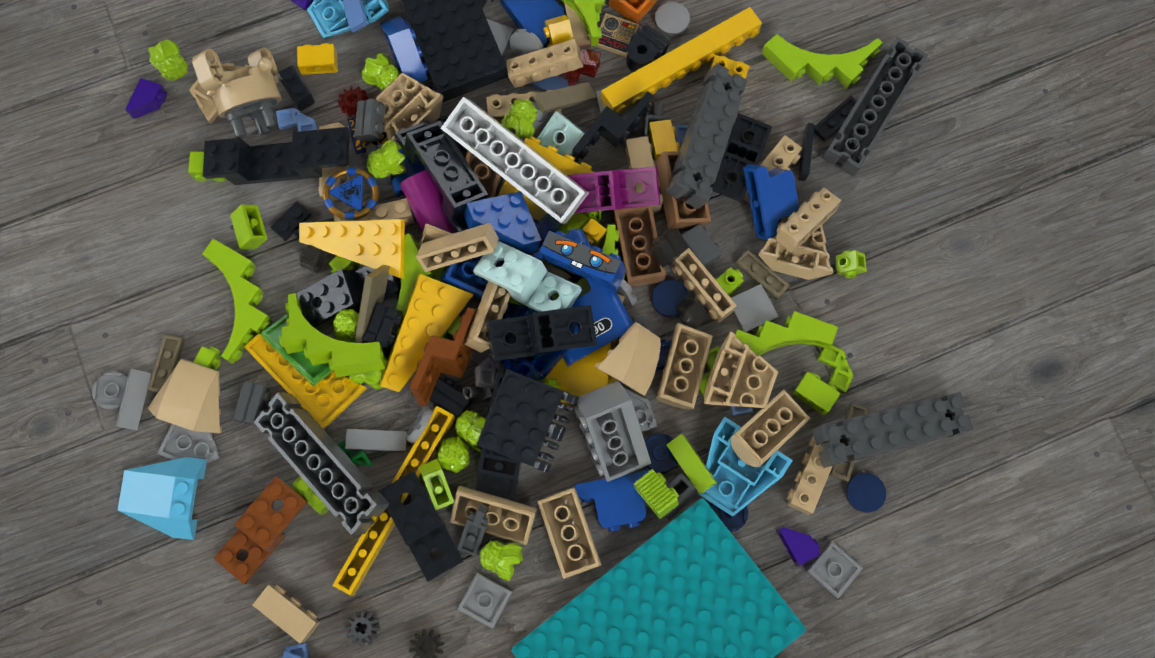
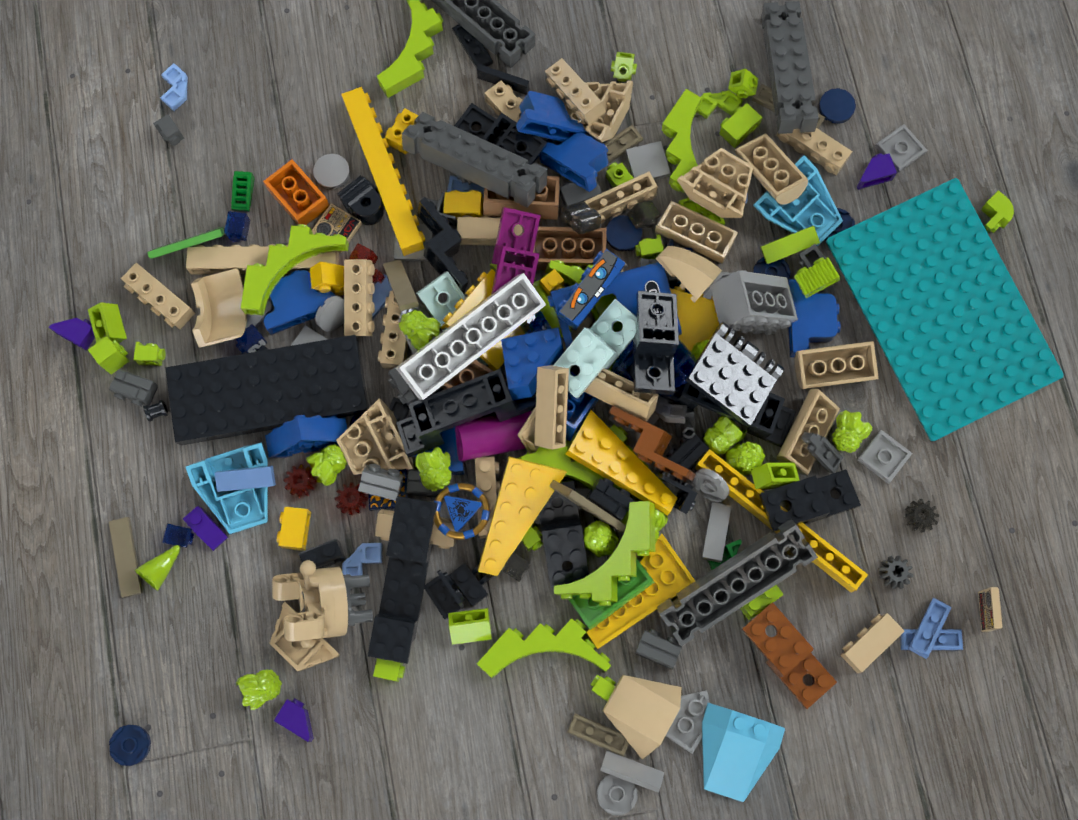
camera: 70 degrees left, 0 degrees up
(276, 200) = (443, 595): none -> black bracket
(361, 52) = (299, 488): none -> clear red gear
(406, 398) = (685, 496): none -> black bracket
(658, 324) = (649, 248): none -> lime brick
(734, 236) = (577, 159): none -> blue brick
(863, 388) = (743, 83): none -> lime brick

